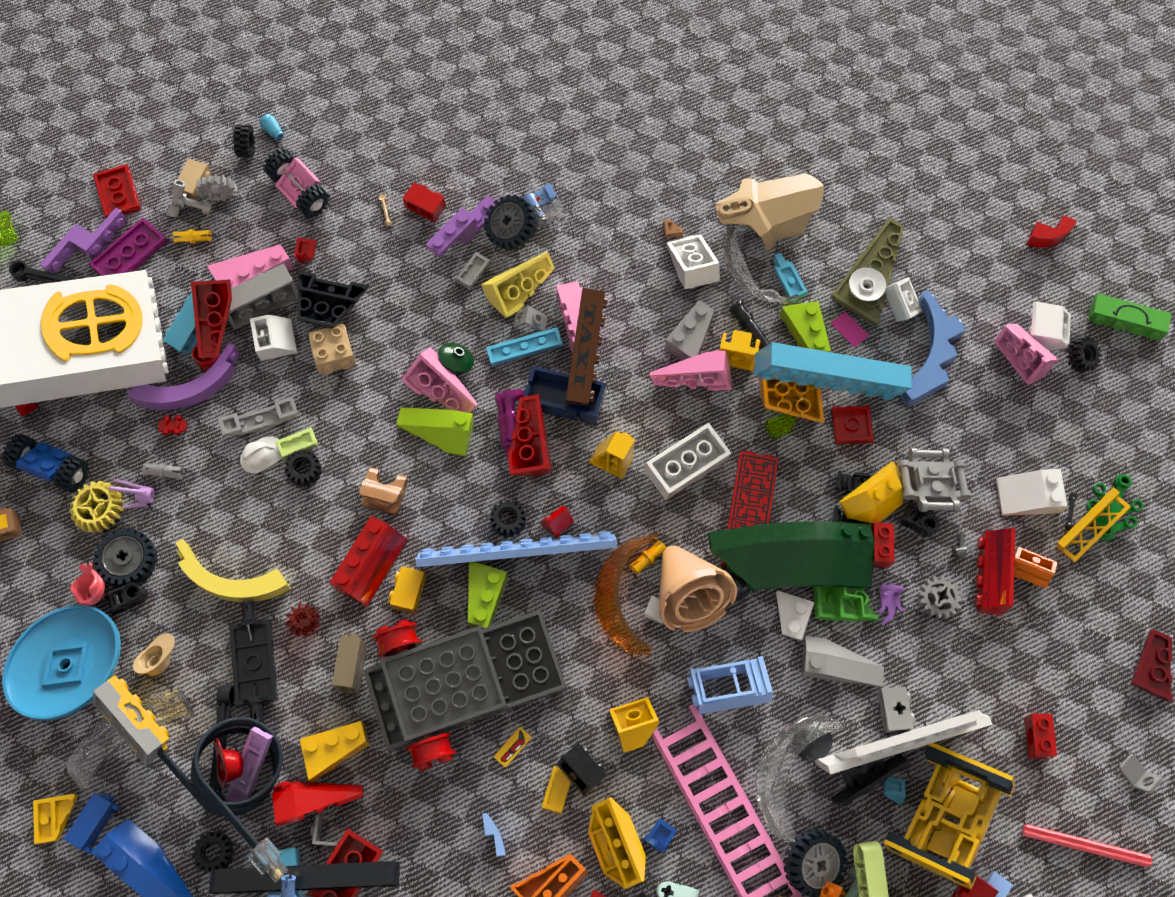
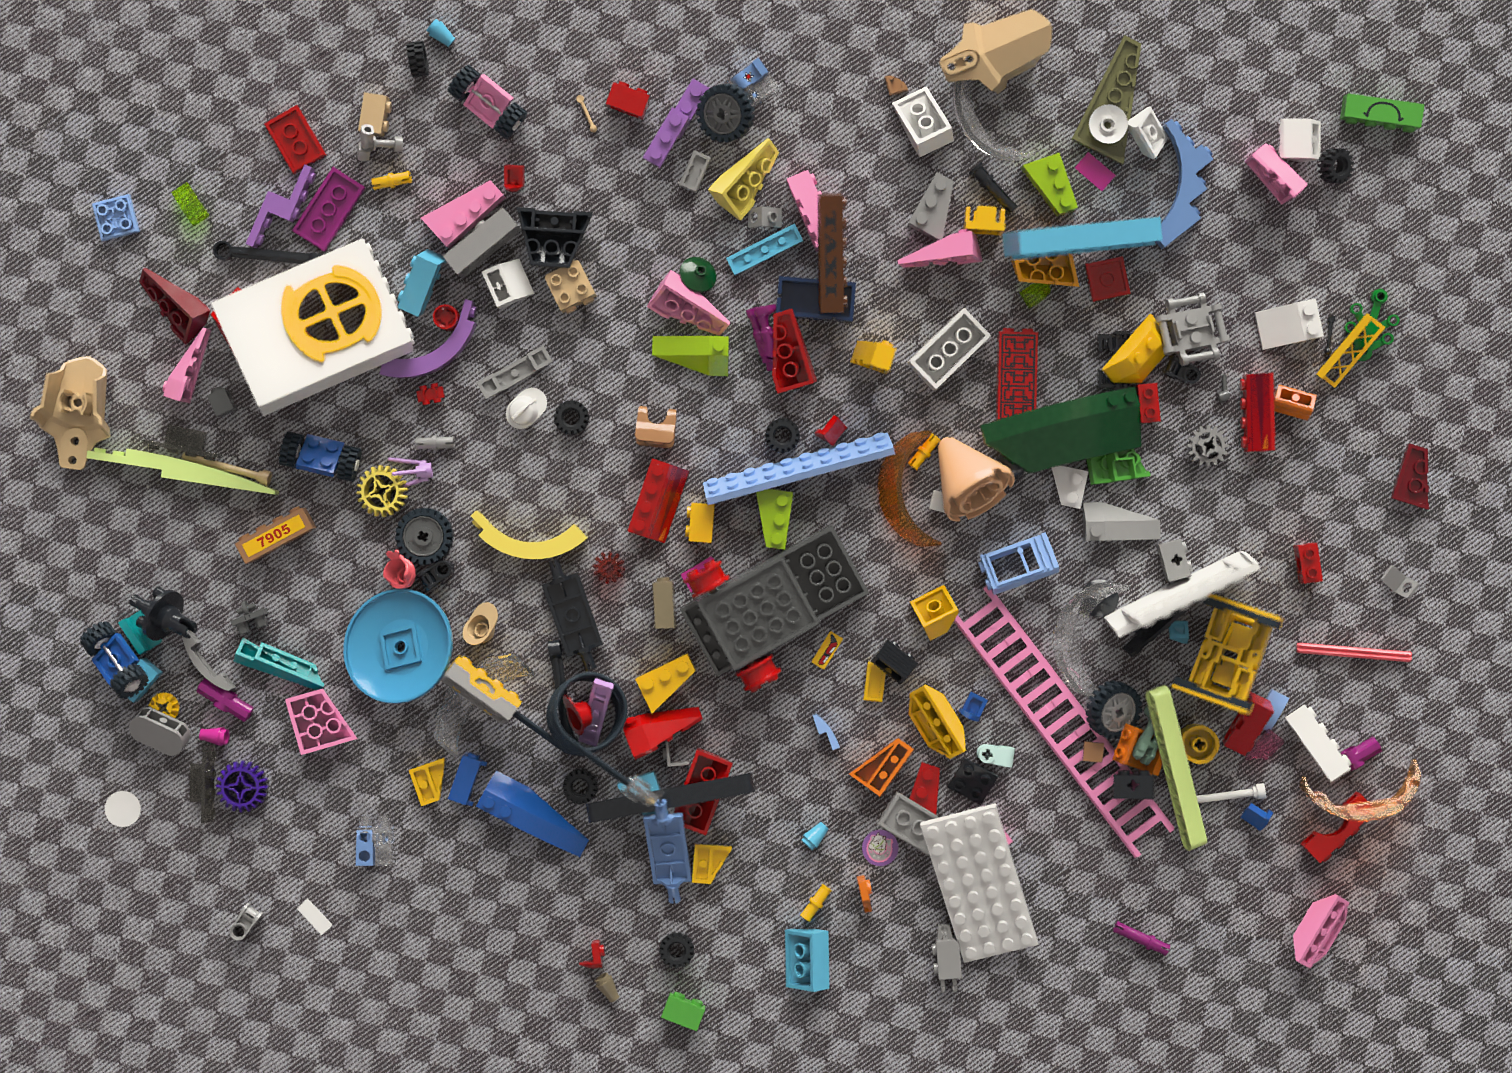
camera: 10 degrees left, 20 degrees up
(211, 312) = (445, 275): red wedge -> none
(216, 188) = (405, 123): light grey gear -> none
(302, 440) = (559, 392): yellowish green plate -> none
(788, 277) = (1026, 125): medium azure hinge -> none
(890, 598) = (1159, 453): medium lavender piece -> none
(1046, 236) = (1289, 29): red brick -> none

